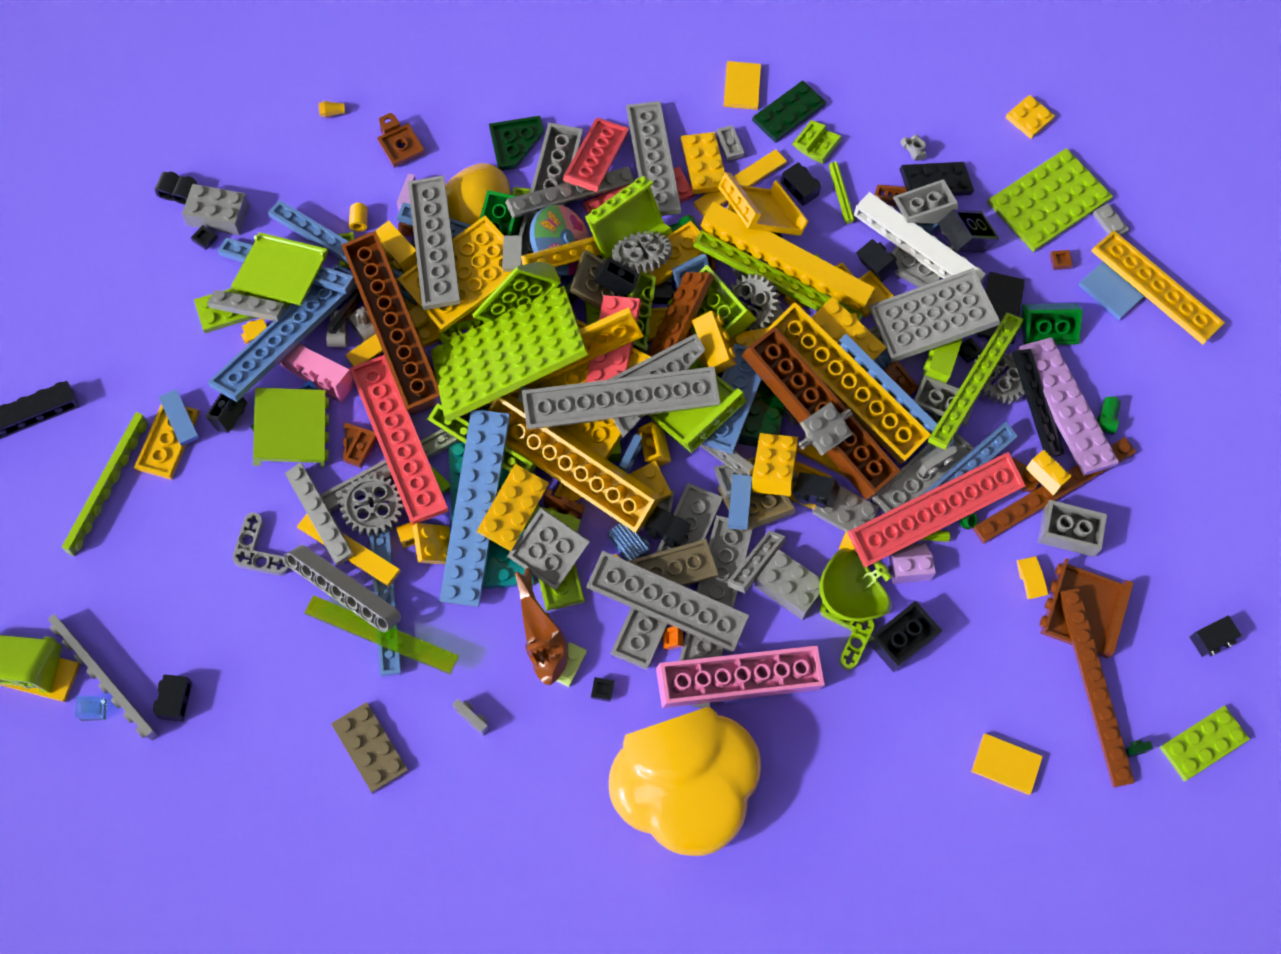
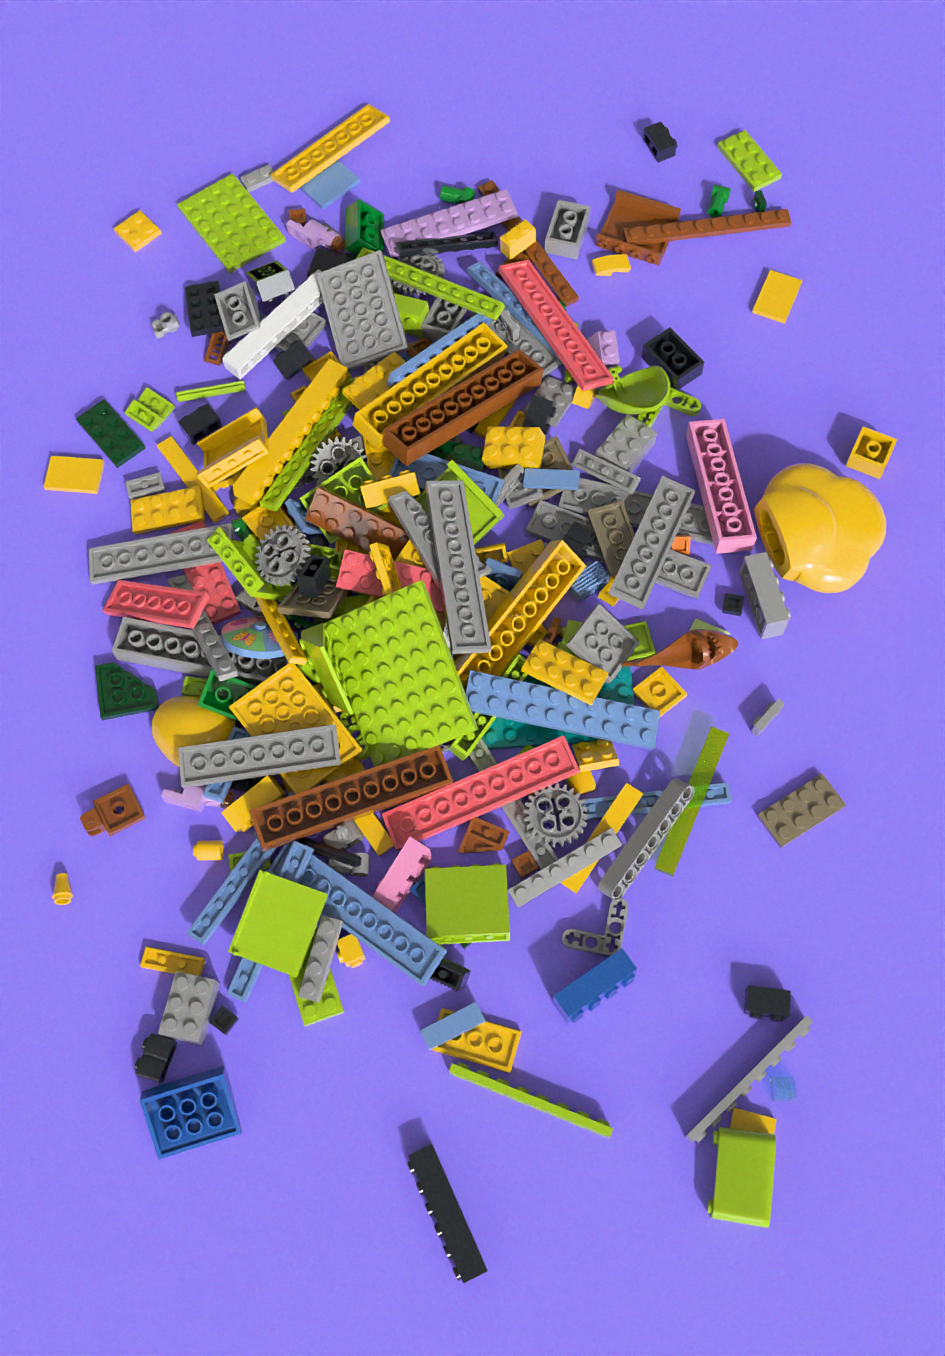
camera: 80 degrees left, 0 degrees up
(129, 216) = (190, 1112): none -> blue slope
(199, 537) = (594, 986): none -> blue brick
(260, 197) = (171, 962): none -> yellow tile
(327, 479) = (524, 864): none -> dark orange plate
(501, 610) = (659, 691): none -> yellow plate
(512, 252) = (279, 676): light grey tile -> none
(607, 717) = (764, 595): none -> light grey brick
(792, 852) = (871, 452): none -> yellow brick
(825, 428) = (486, 396): light grey plate -> none
(1040, 279) = (316, 234): none -> lavender plate
(1143, 702) = (718, 199): none -> green piece

